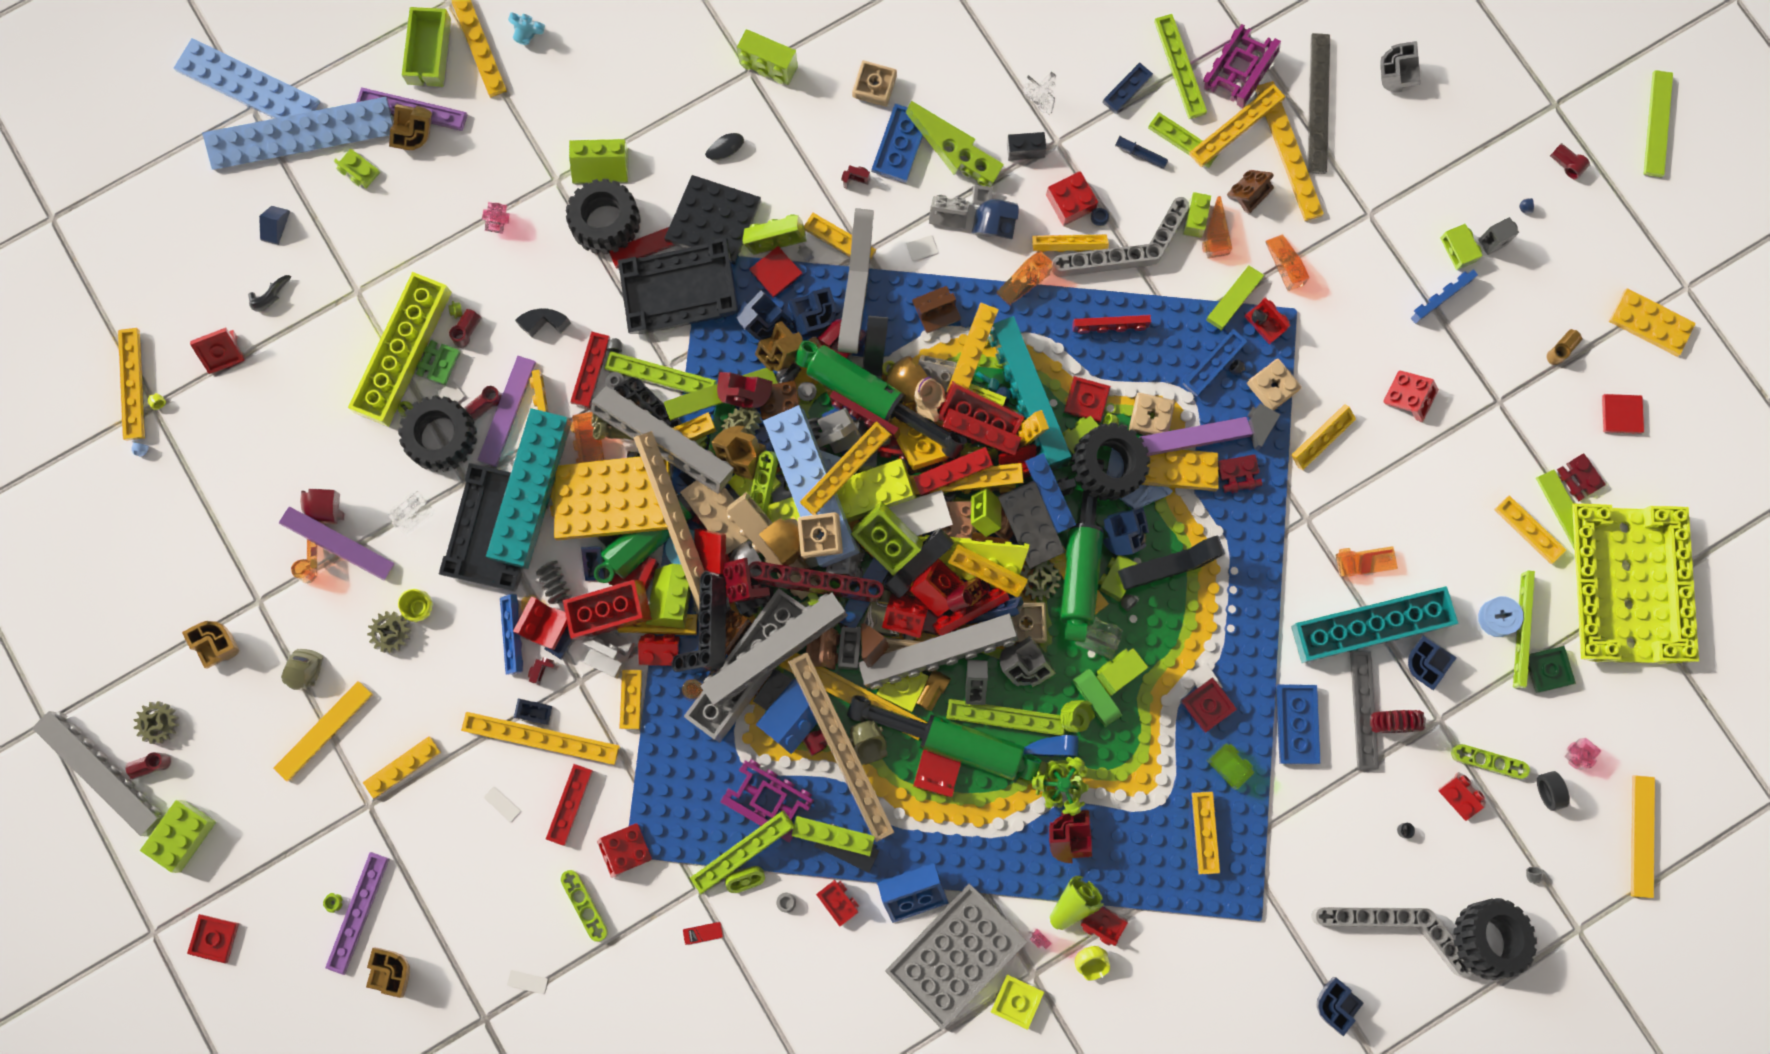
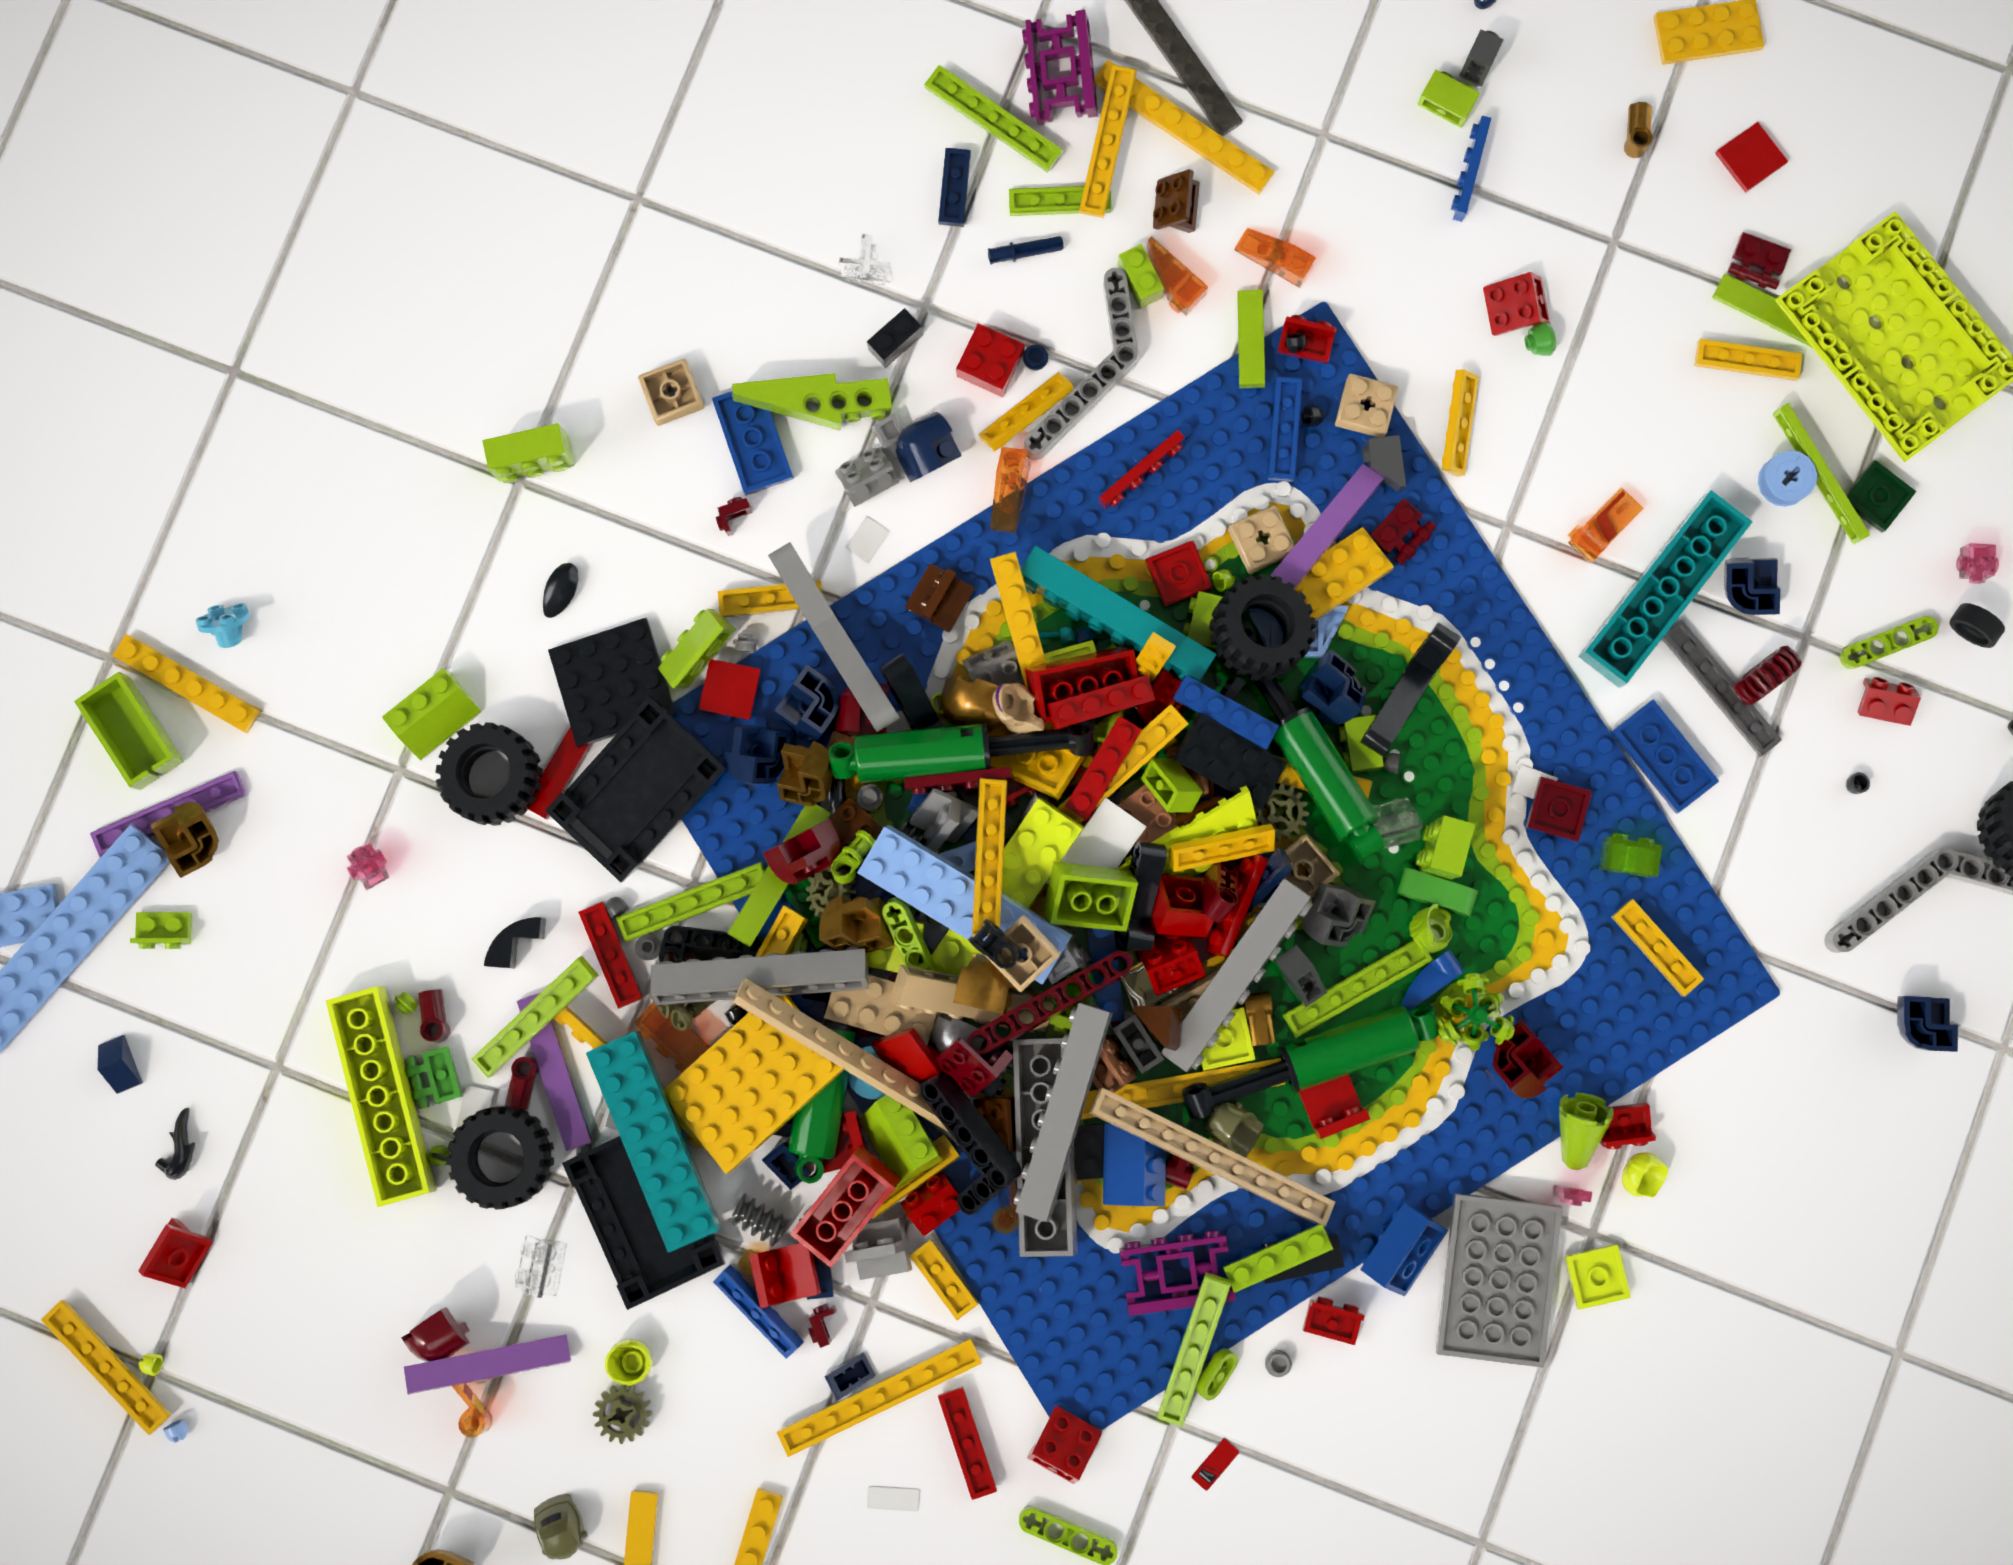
camera: 35 degrees left, 5 degrees up
(520, 370) = (535, 1017): none -> lime tile
(767, 411) = (852, 856): none -> lime connector
(808, 513) = (994, 944): none -> black piece
(1410, 425) = (1541, 340): none -> bright green cone

